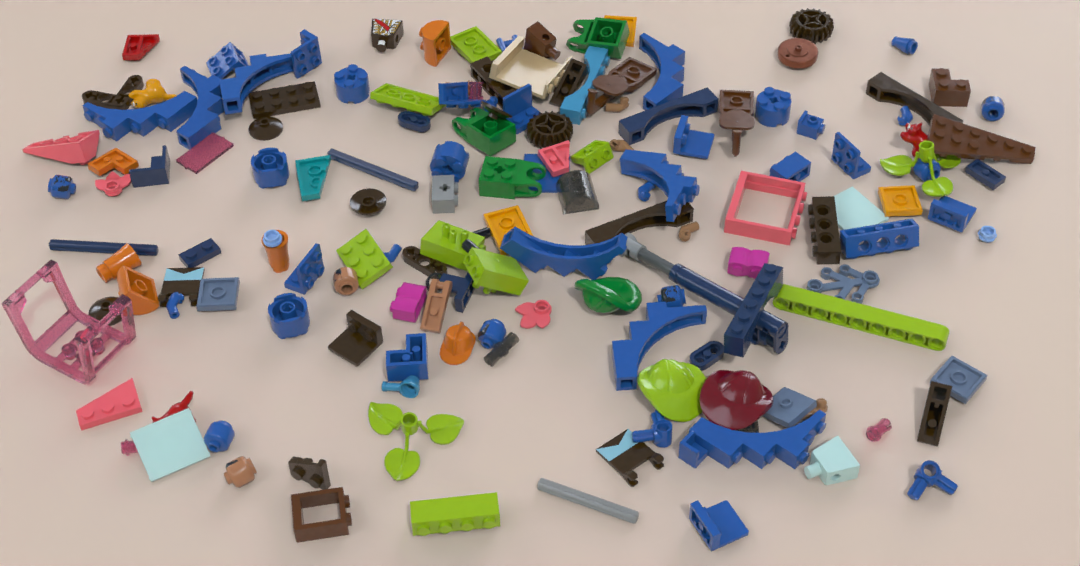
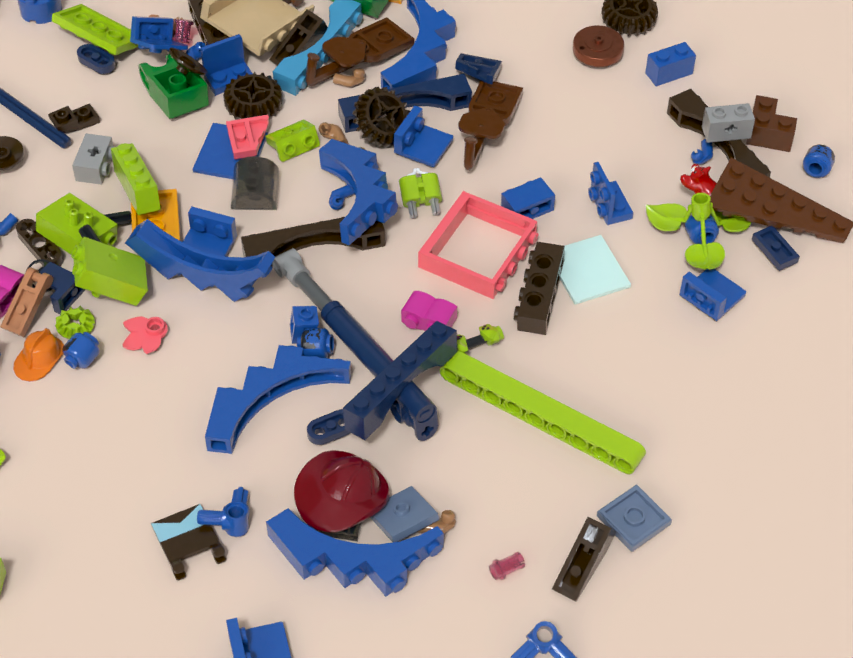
camera: 10 degrees right, 5 degrees up
(414, 168) = (69, 120): none -> dark brown slope
(449, 160) = (113, 118): blue brick -> none
(478, 320) = (67, 329): none -> lime gear
(486, 201) = (135, 178): none -> lime brick
(501, 349) = (86, 371): clear smoke pin -> none
(509, 178) = (179, 151): green brick -> none
(558, 229) = (210, 231): none -> blue bracket
(588, 500) = (115, 588): light grey axle -> none
(610, 294) = (241, 325): green piece -> none
(647, 124) = (380, 103): none -> dark brown gear
(653, 284) = (302, 318): none -> blue bracket
(673, 389) = (268, 463): lime piece -> none
(686, 230) = (370, 257): medium nougat arm -> none
(690, 451) = (264, 548): blue panel -> none
(707, 176) = (420, 190): none -> lime piece
(713, 81) = (478, 67): none -> dark blue wing
(773, 107) = (538, 113): blue brick -> none
(798, 270) = (488, 335): none -> lime piece
(810, 125) = (577, 145): blue brick -> none
(832, 463) = (430, 599): light aqua torso -> none
(851, 238) = (613, 303): blue brick -> none
(857, 57) = (670, 64): none -> blue brick
(865, 280) = (541, 362): sand blue plant -> none
(900, 201) = (652, 265): light orange plate -> none
(906, 45) = (739, 56): blue cone -> none
(921, 90) = (728, 122): none -> light grey brick
(987, 234) = (747, 324): light blue plate -> none

